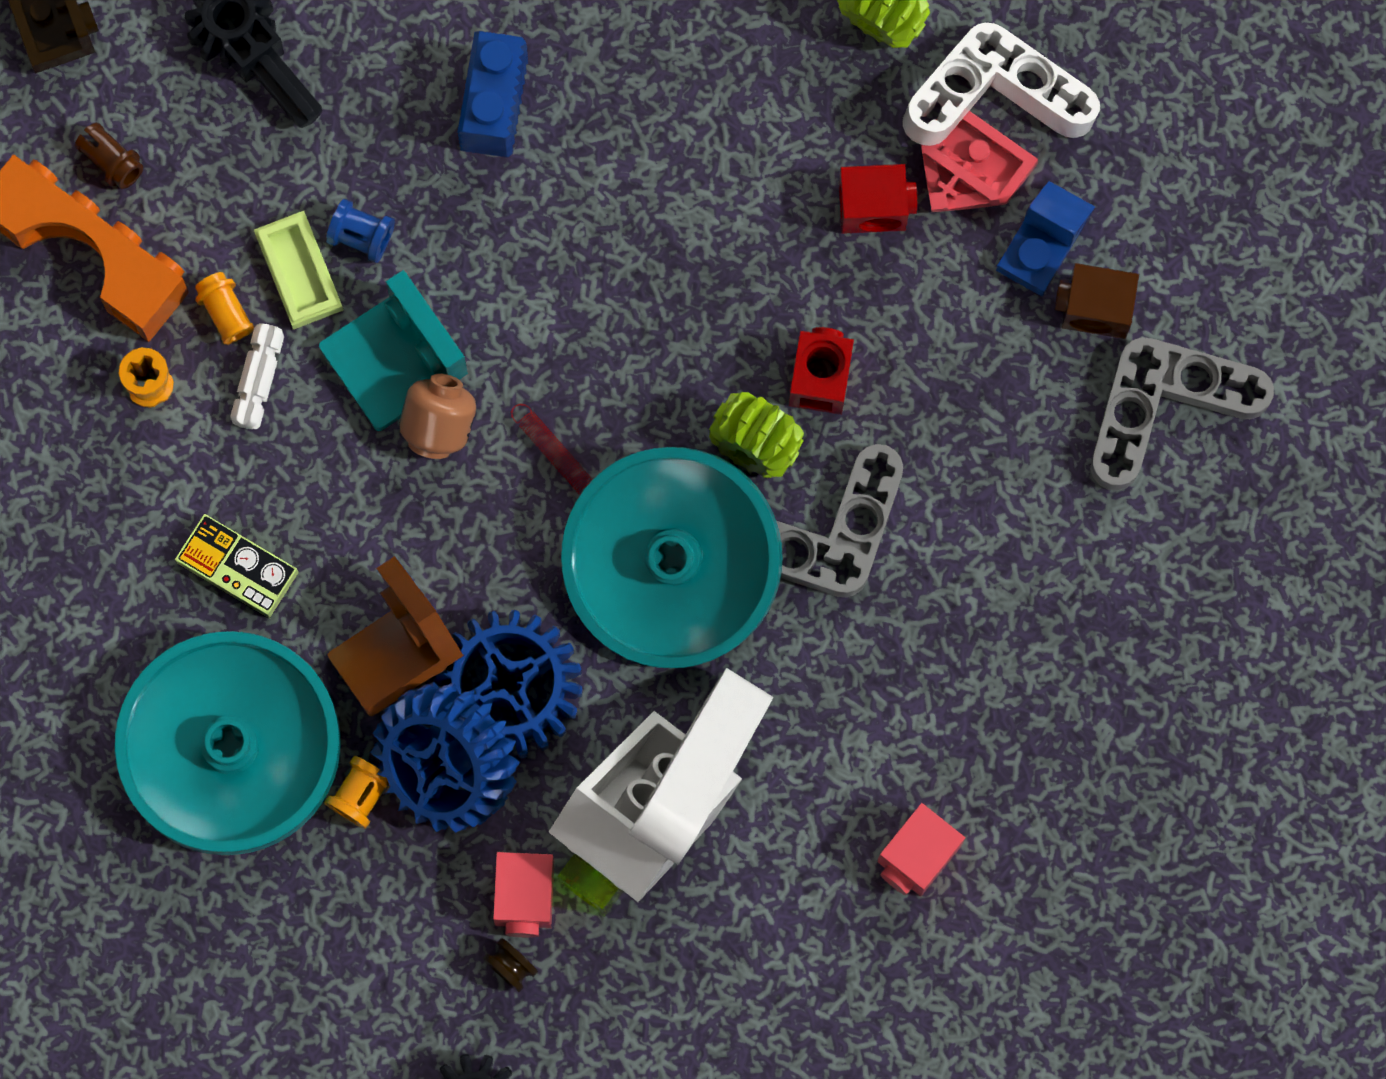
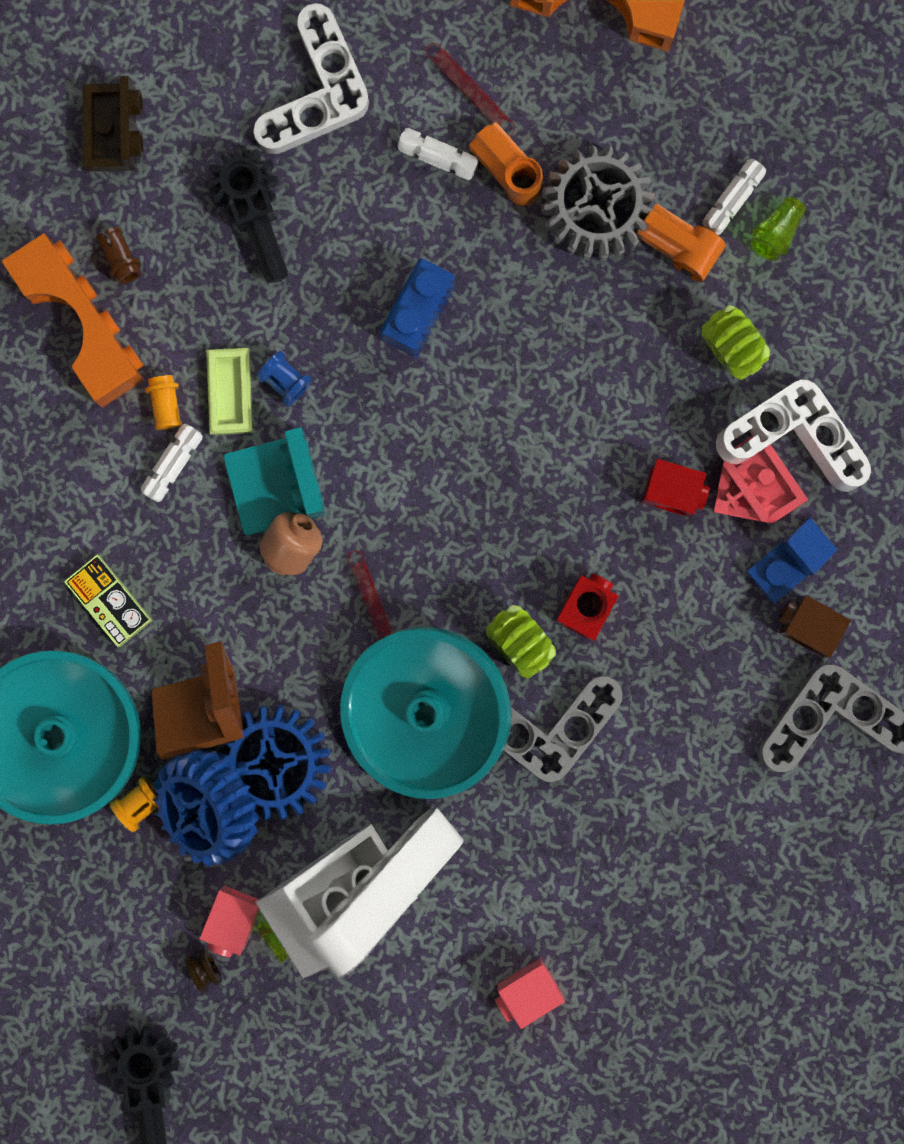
camera: 20 degrees right, 10 degrees up
(138, 363) = (76, 442): light orange bush -> none

